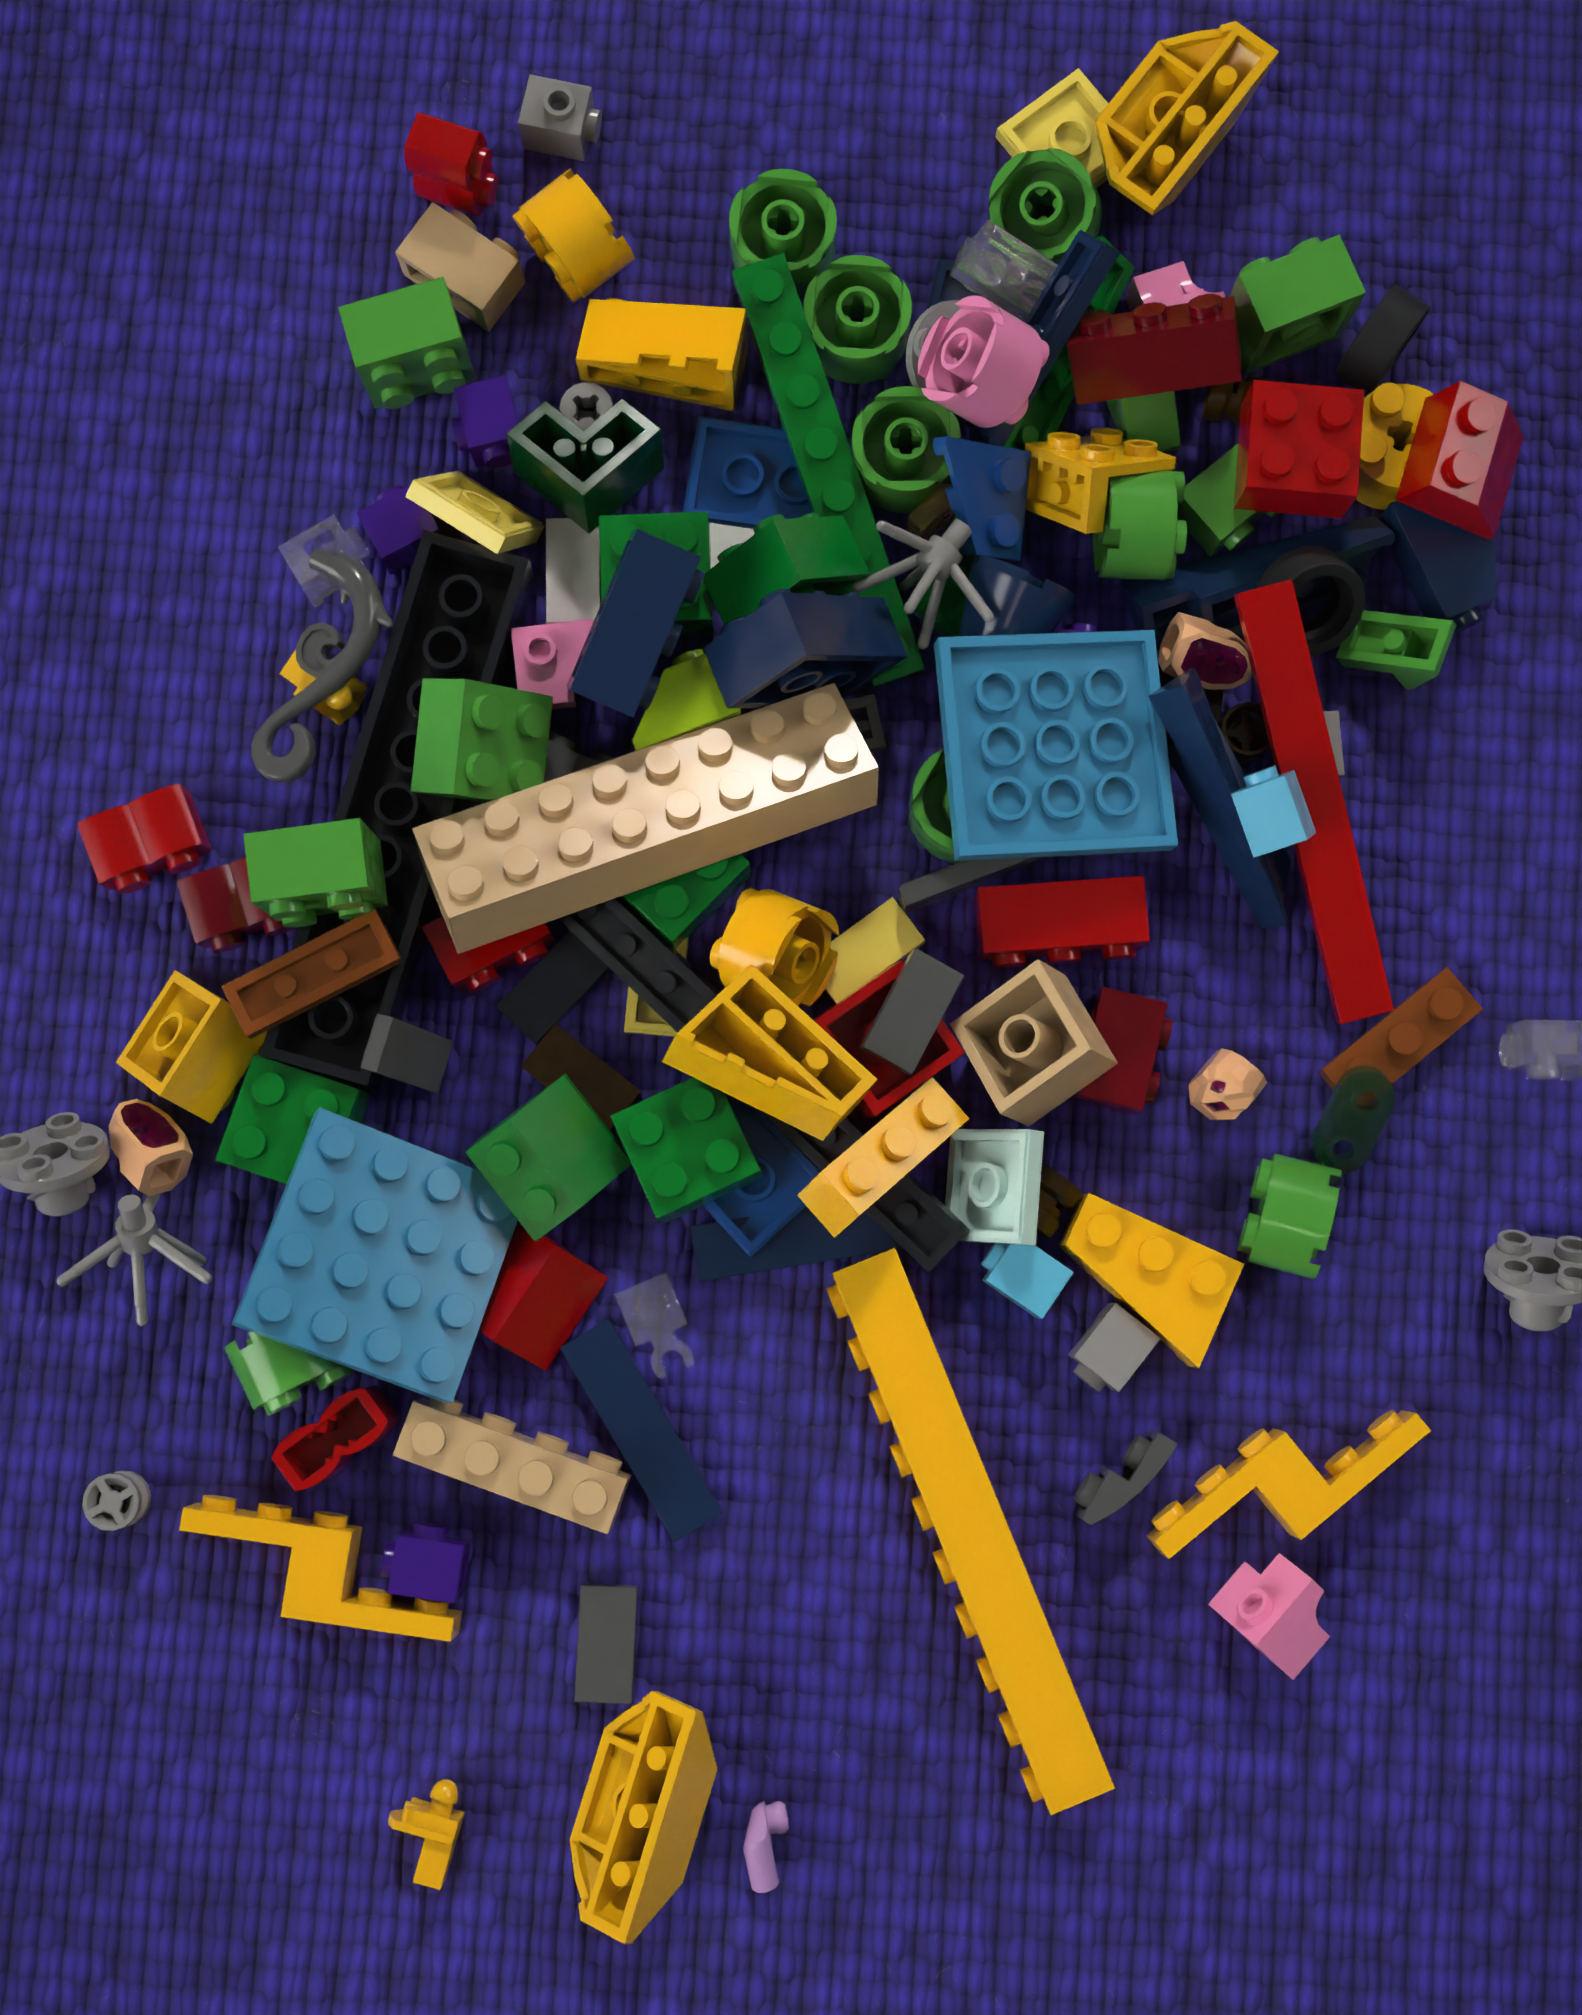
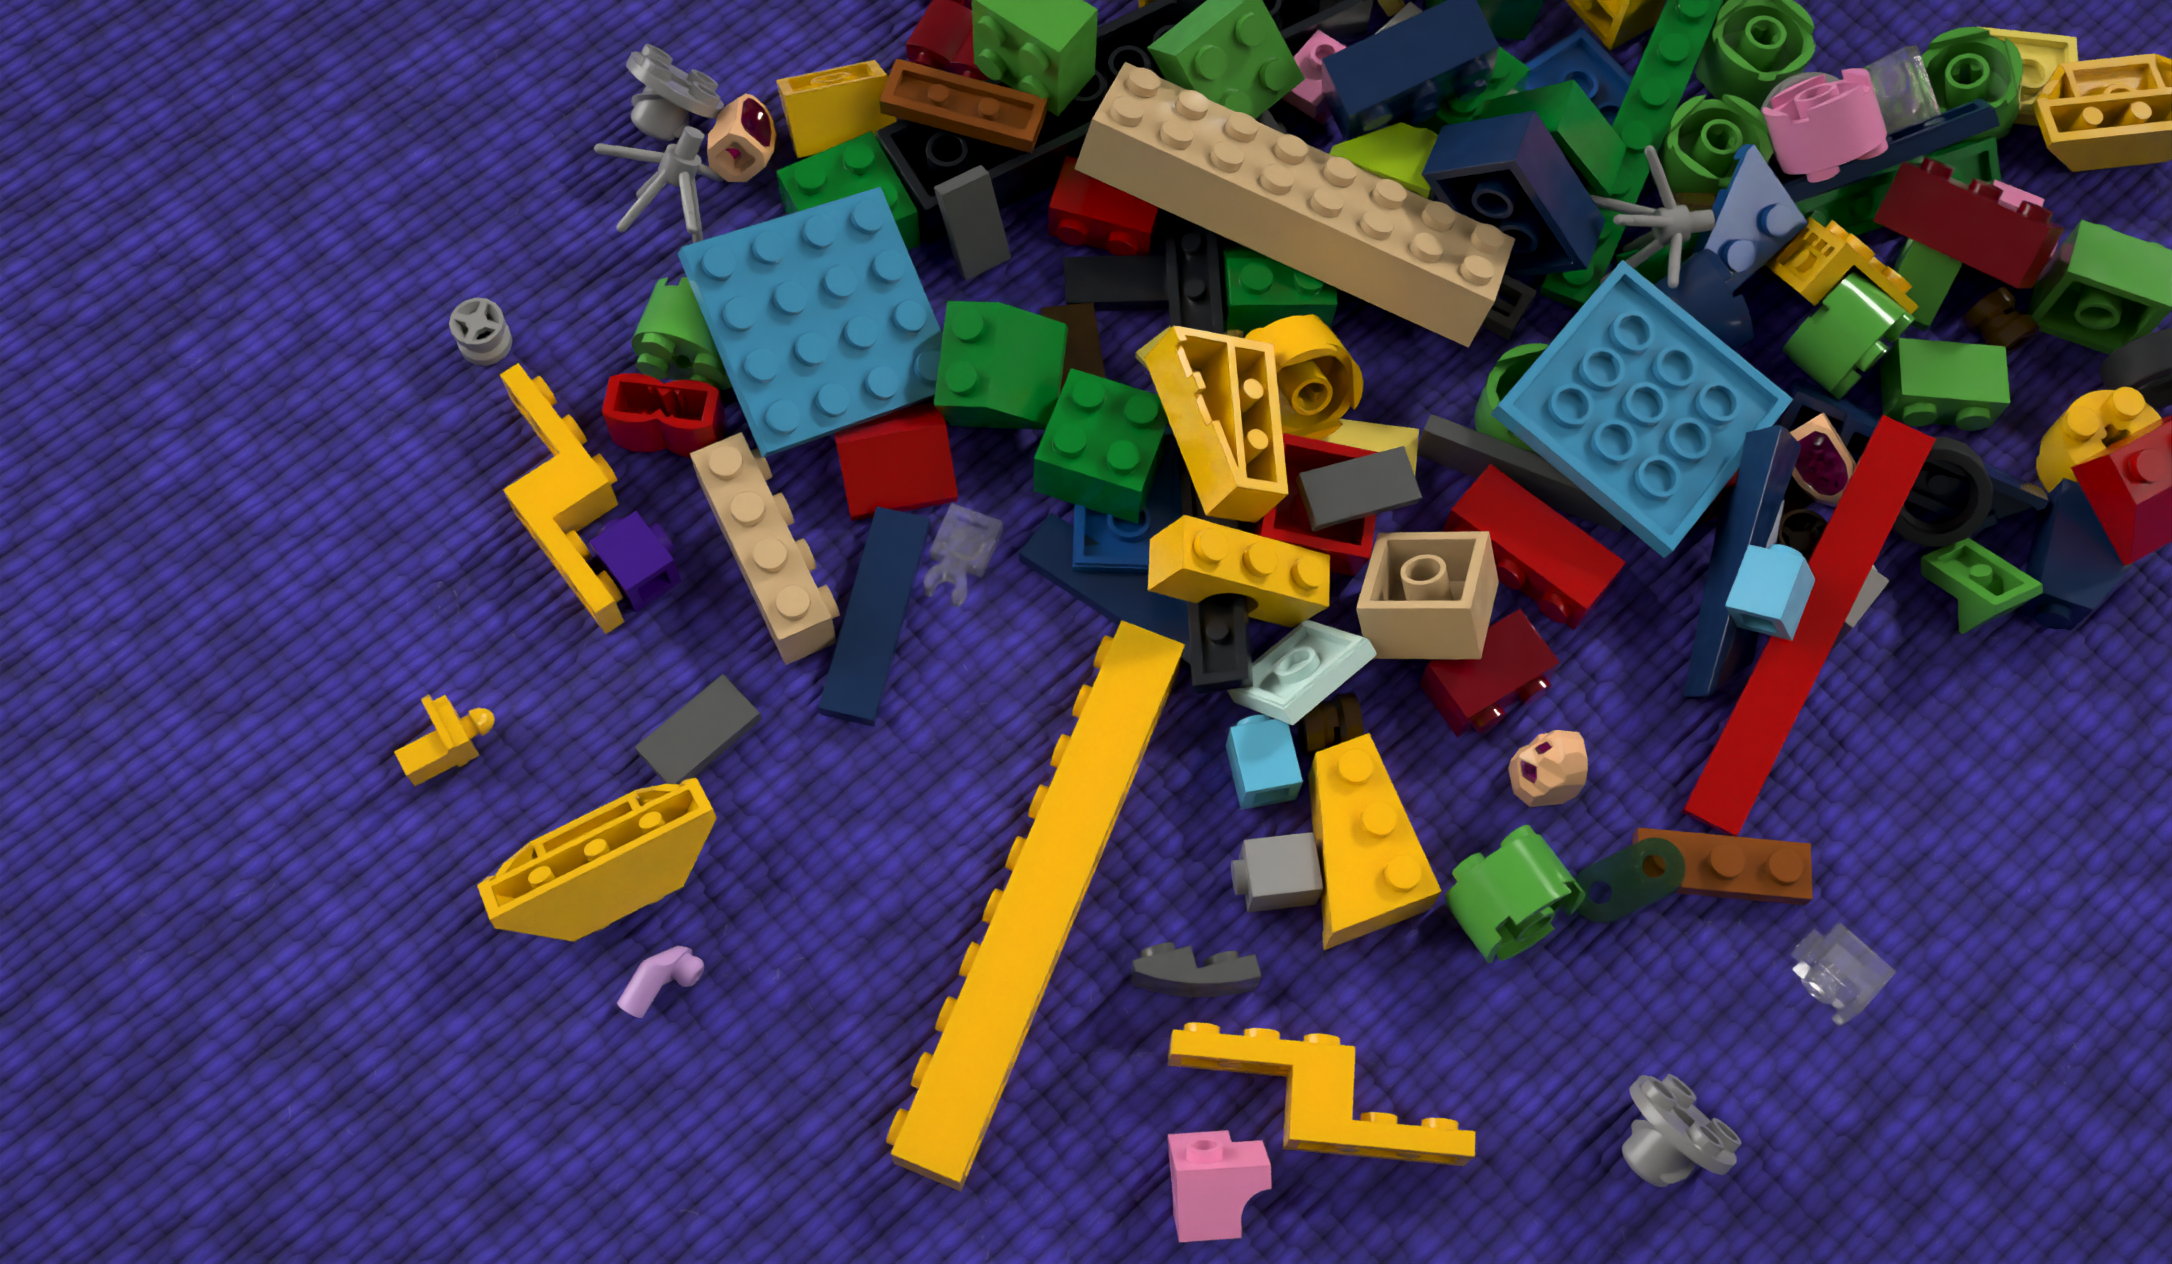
camera: 40 degrees right, 15 degrees down
(1299, 449) = (2022, 372): red brick -> none

